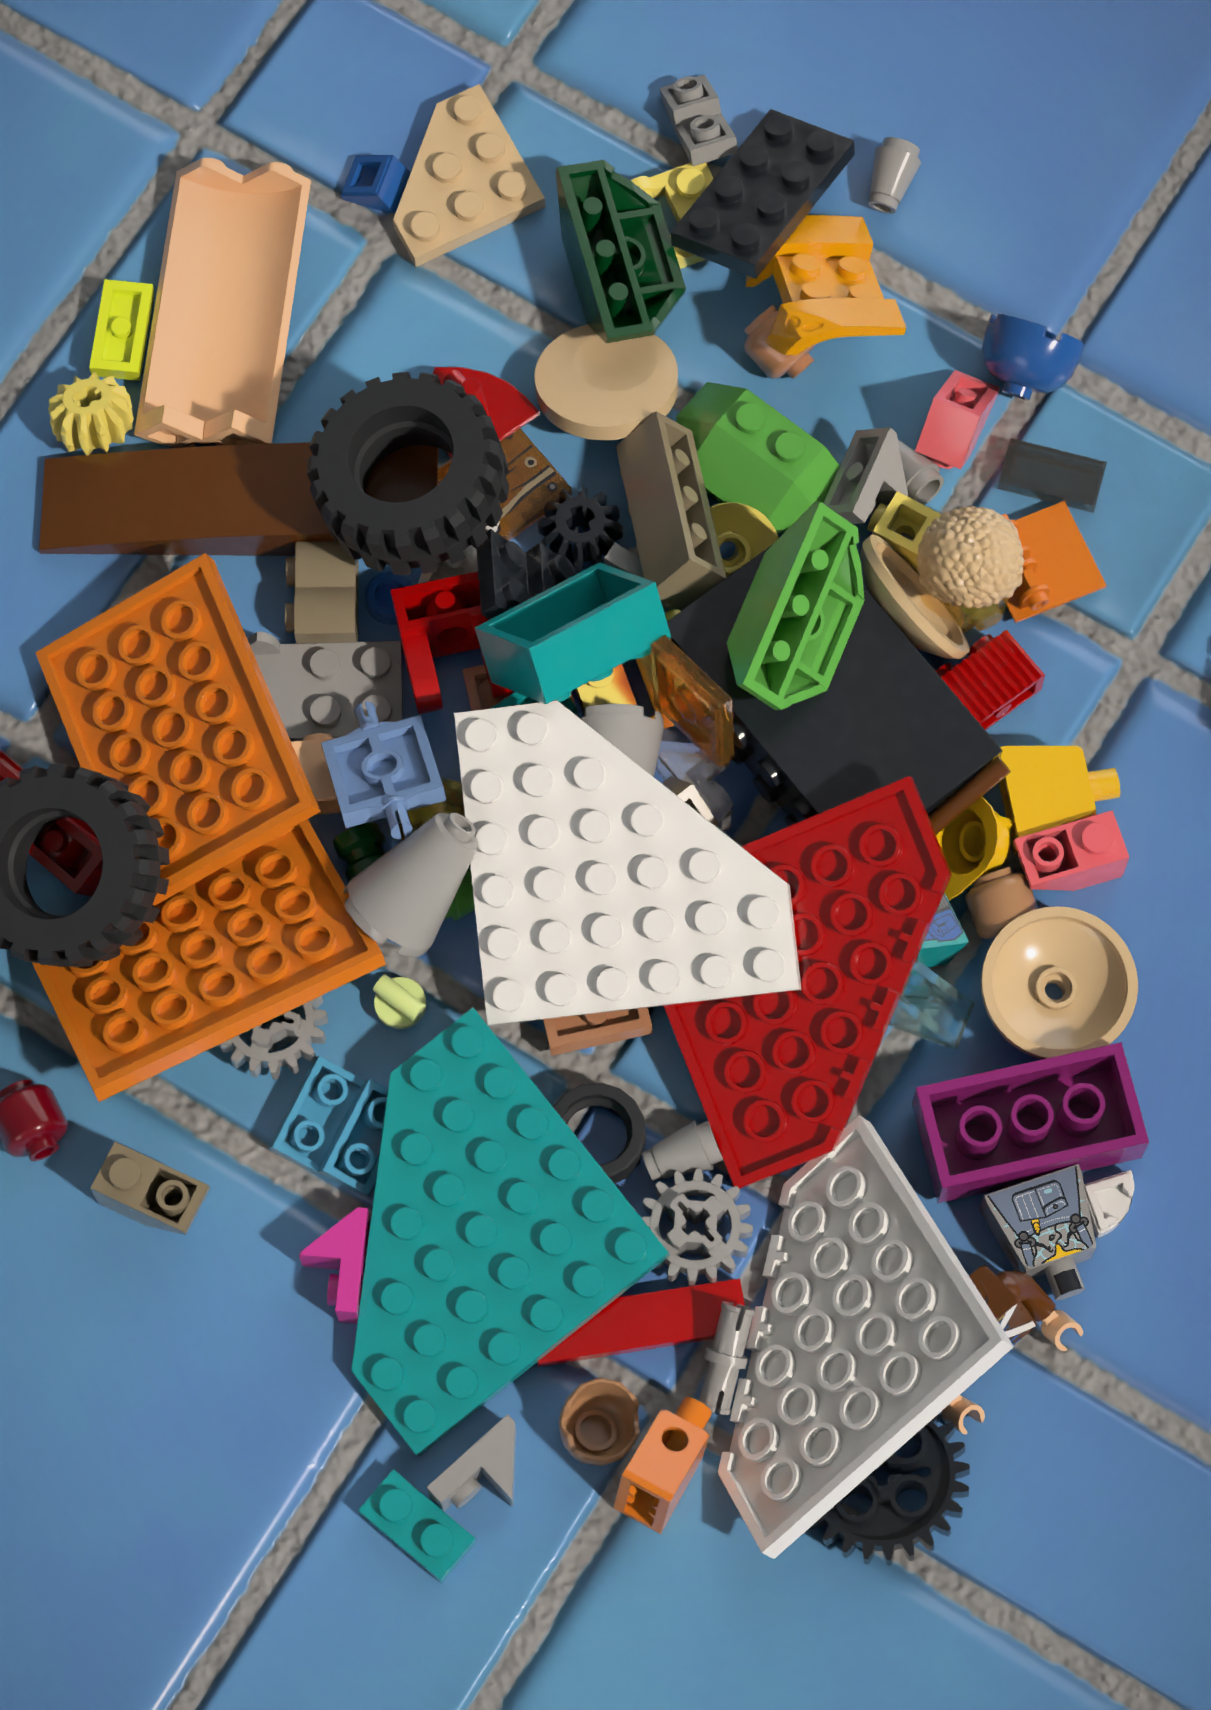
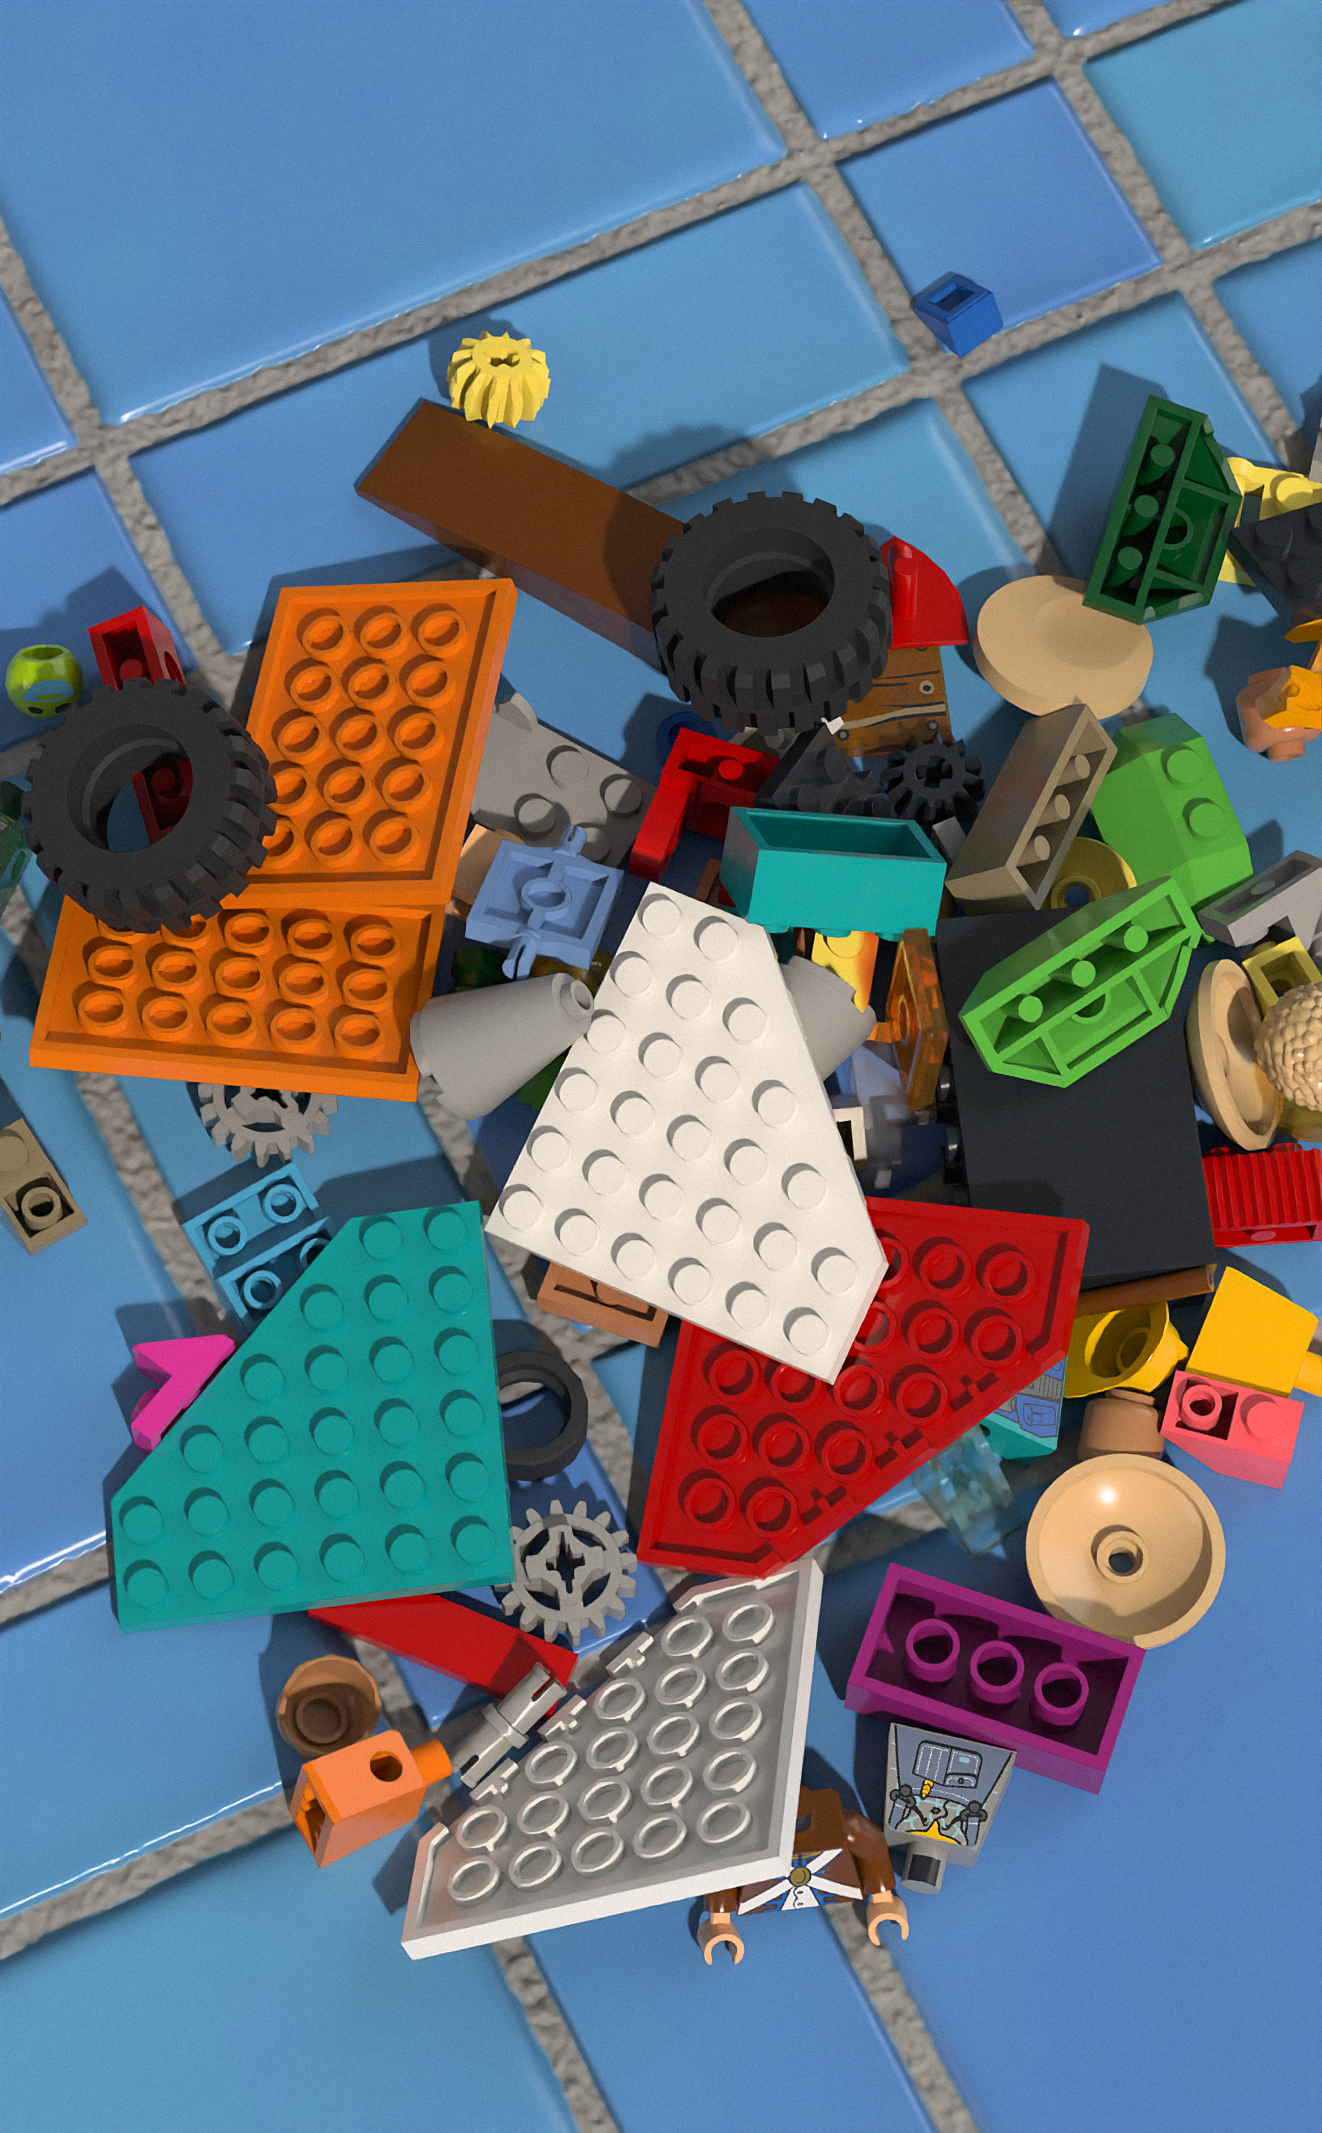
camera: 30 degrees right, 5 degrees down
(122, 329) = (590, 315): neon yellow plate -> none
(223, 305) = (710, 347): light nougat cylinder -> none
(324, 593) = (616, 699): dark tan brick -> none
(399, 1001) = (415, 1157): yellowish green plate -> none
(417, 1526) = (72, 1701): teal plate -> none
(463, 180) = (1052, 361): tan plate -> none
(489, 1457) = (193, 1673): light grey slope -> none
(683, 1151) = (605, 1486): light grey cone -> none
(886, 1524) = (556, 1999): black gear -> none
(1109, 1201) = (1032, 1819): white tile -> none

